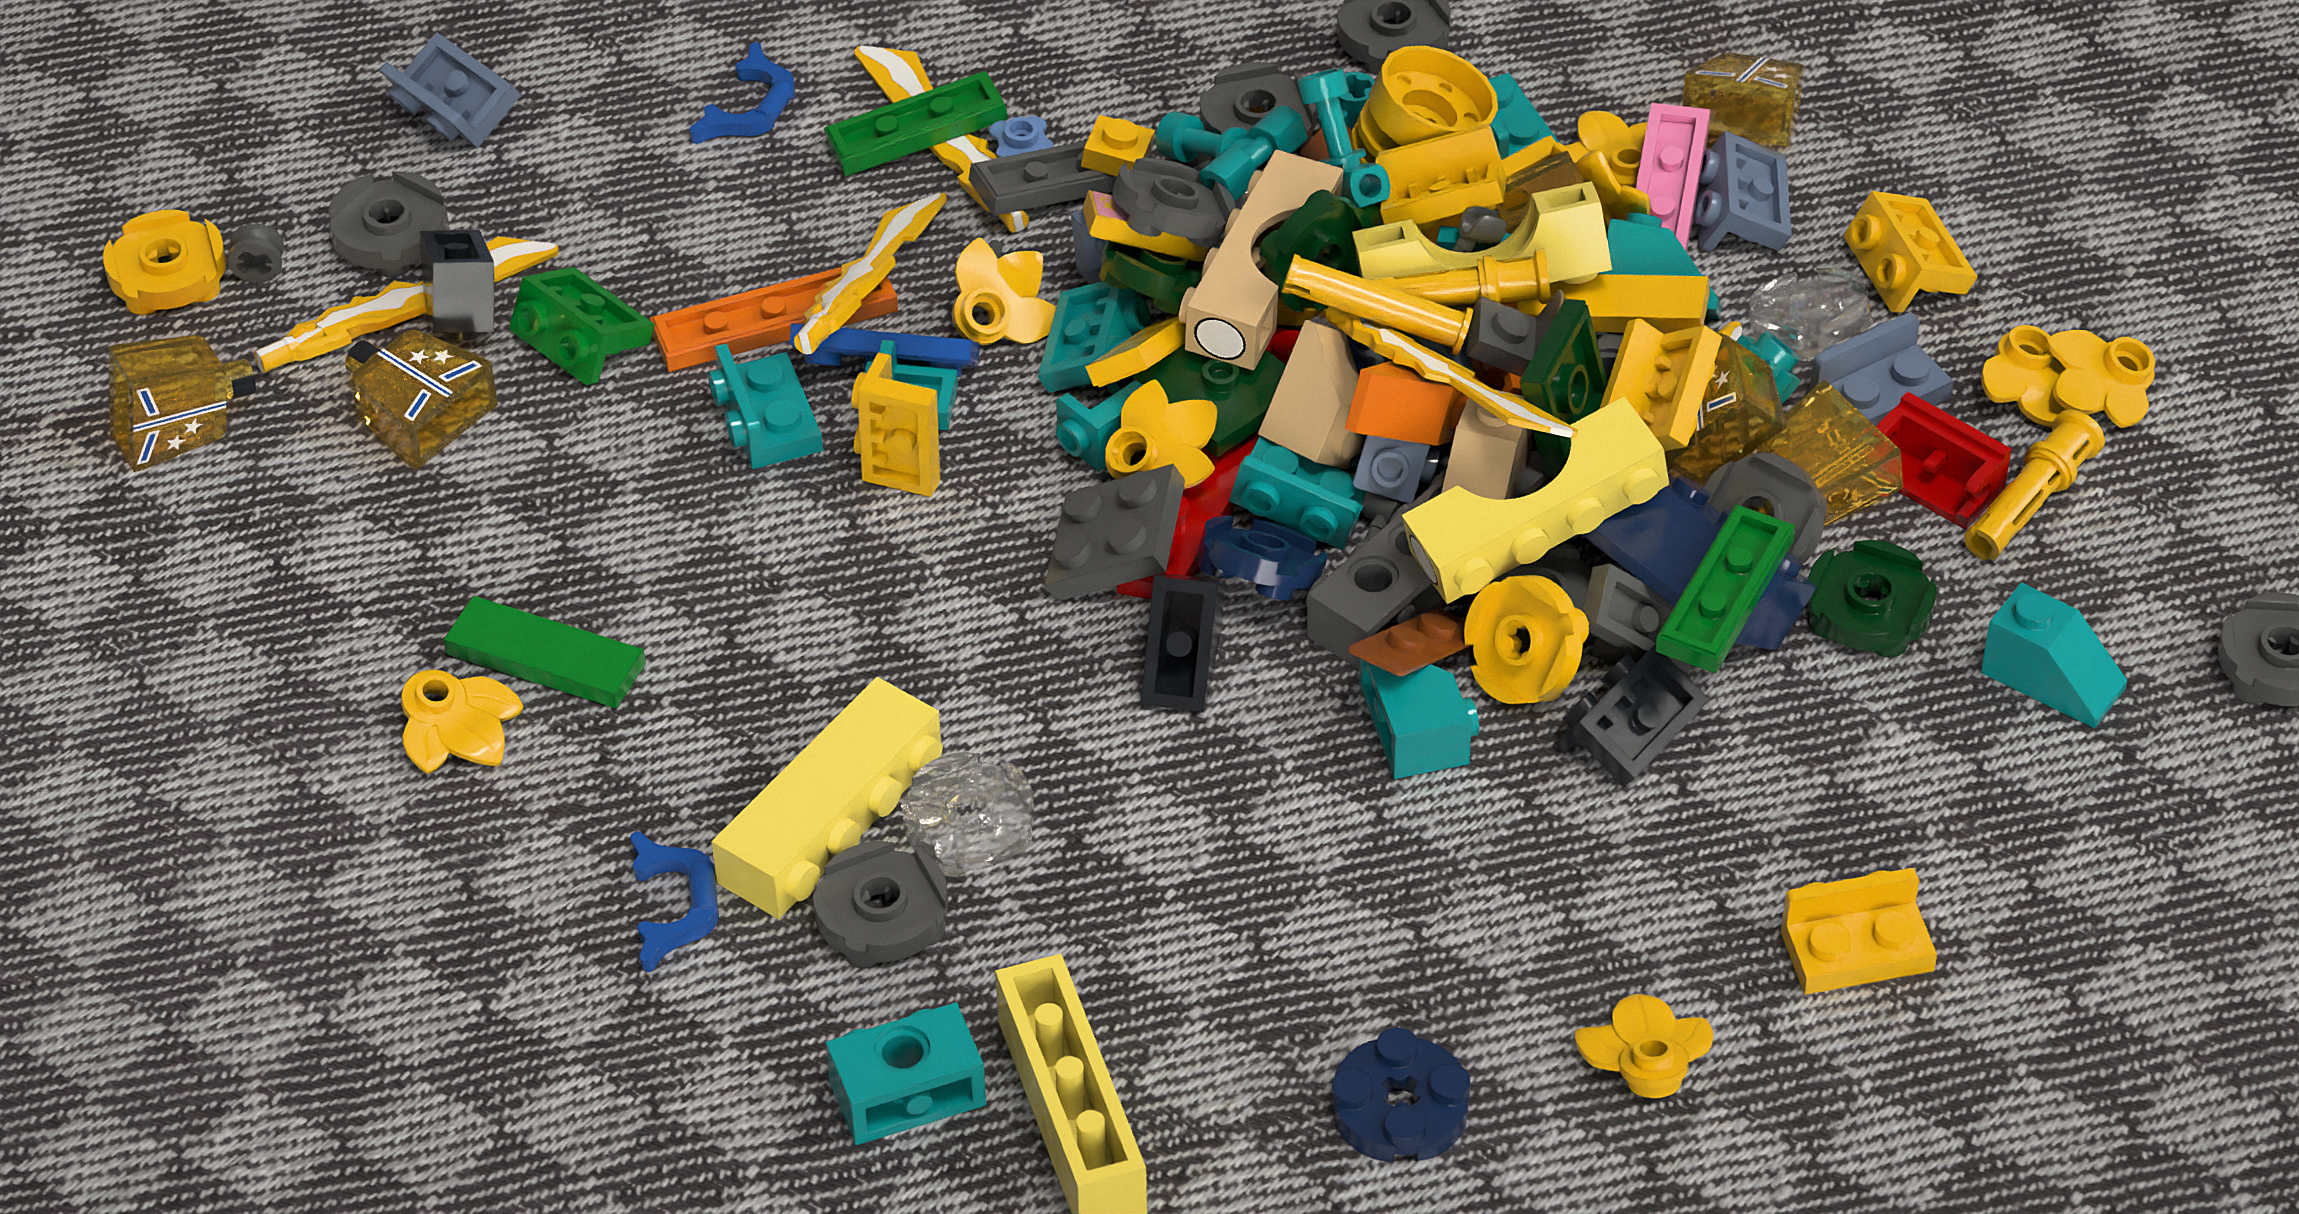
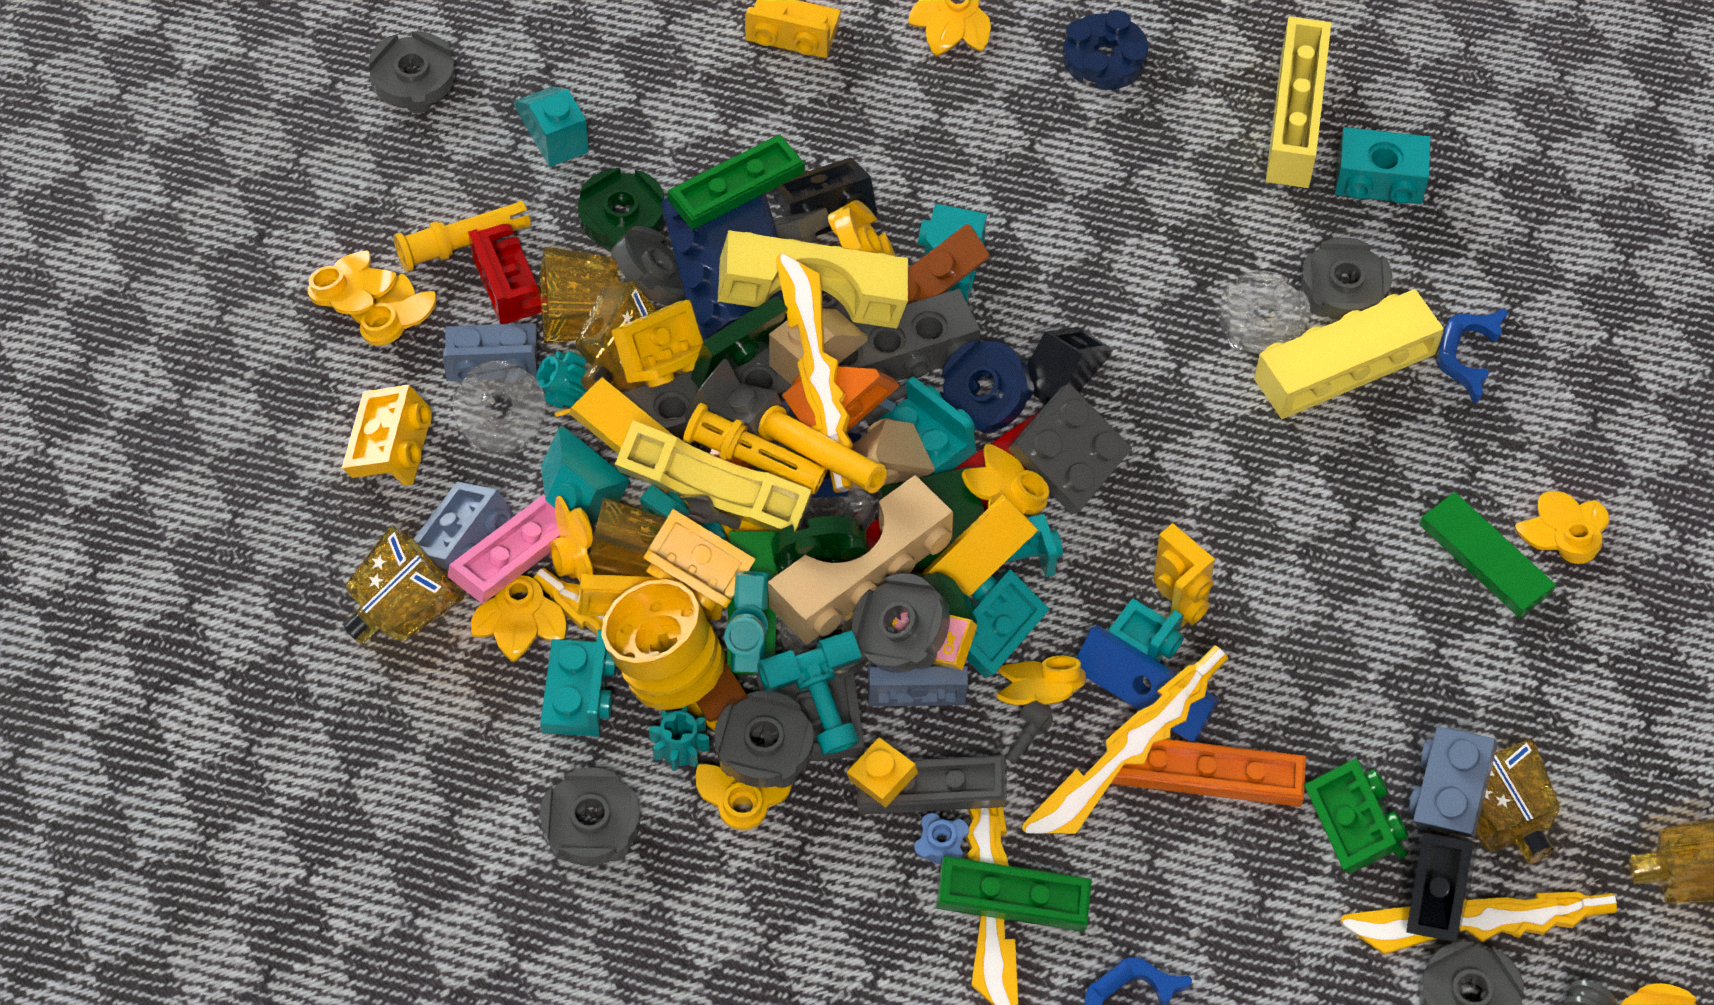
camera: 155 degrees left, 10 degrees up
(484, 346) = (1454, 782): none -> sand blue bracket
(764, 408) = (1252, 682): teal bracket -> none

